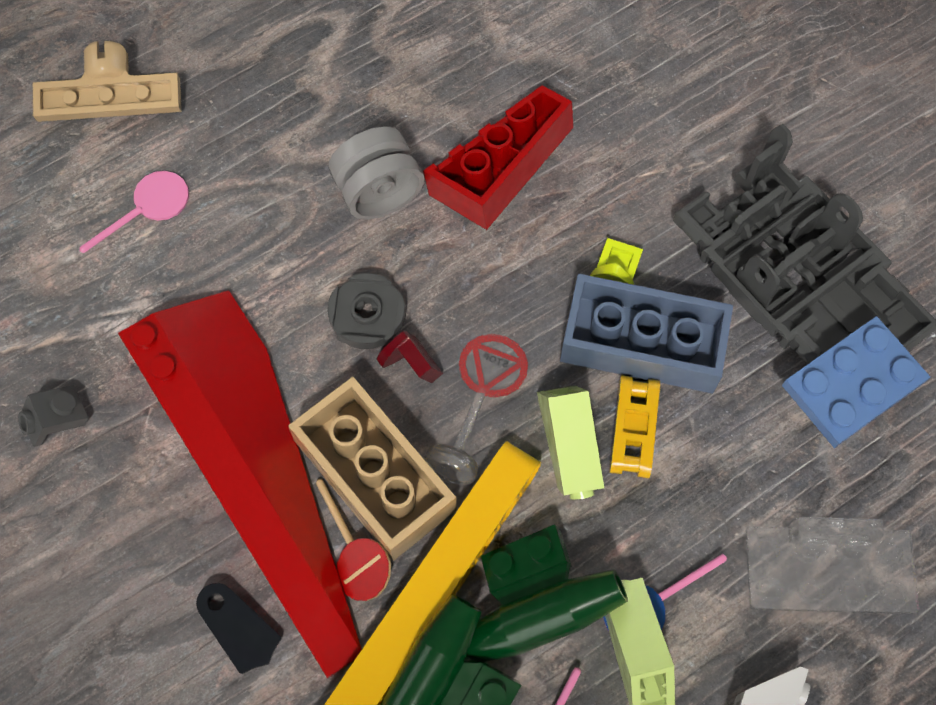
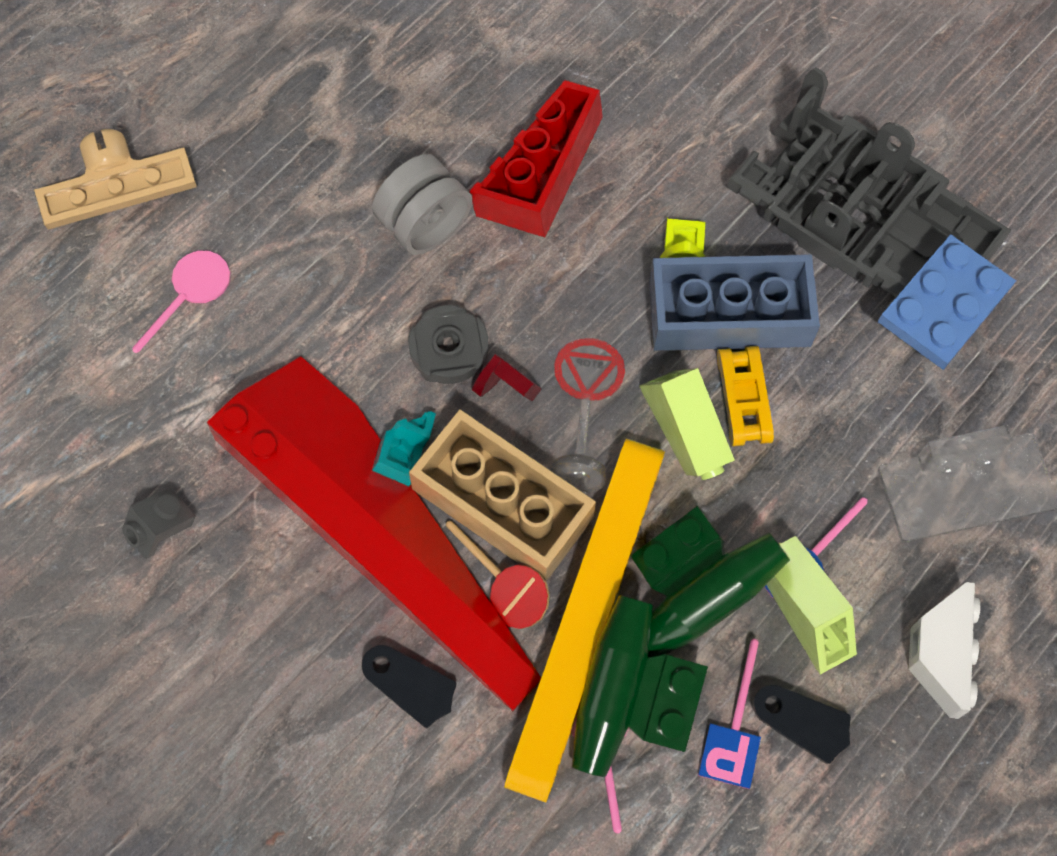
camera: 15 degrees left, 0 degrees up
(295, 397) = (403, 447): none -> teal slope

